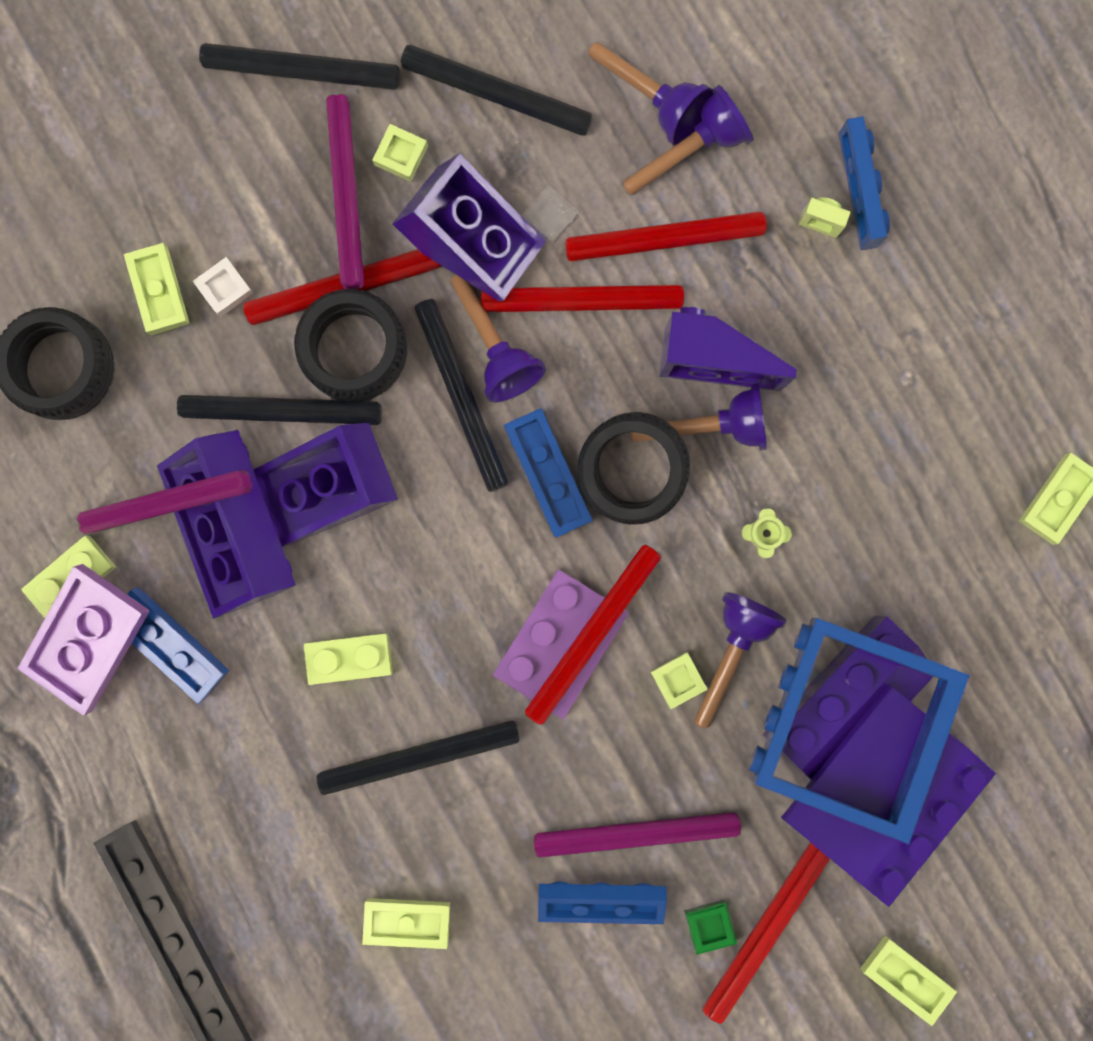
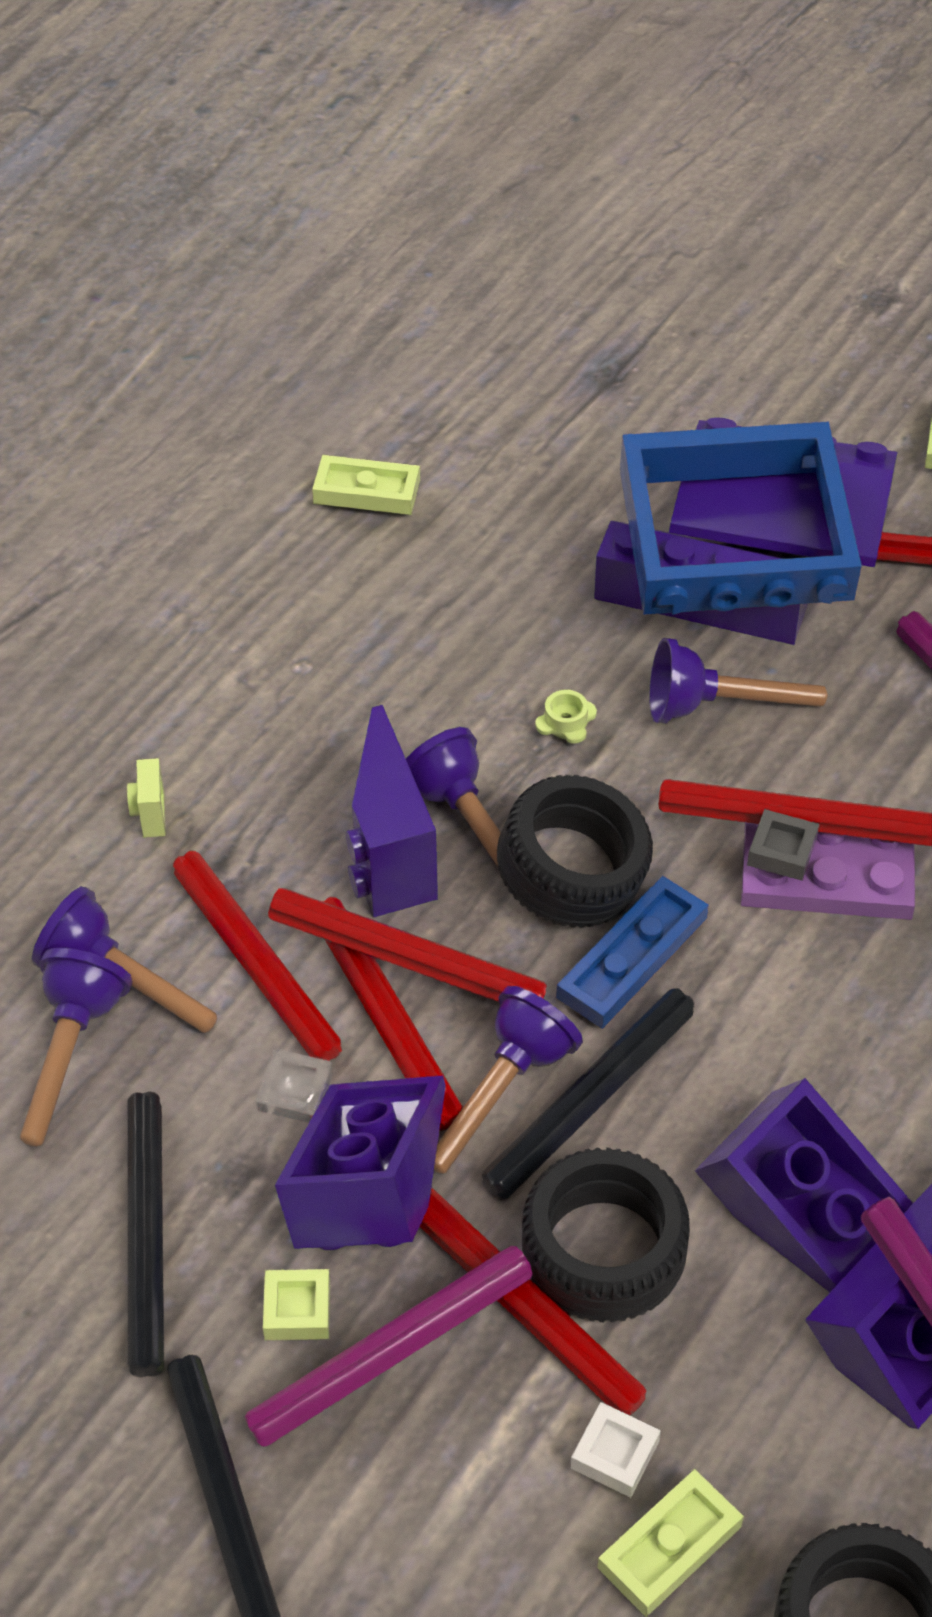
camera: 115 degrees left, 35 degrees down
(279, 409) = (751, 1313): black axle -> none
(568, 606) = (783, 844): none -> dark grey plate
(612, 324) = (397, 946): none -> red axle
(678, 680) = (790, 728): yellowish green plate -> none
(863, 183) = (85, 778): blue plate -> none

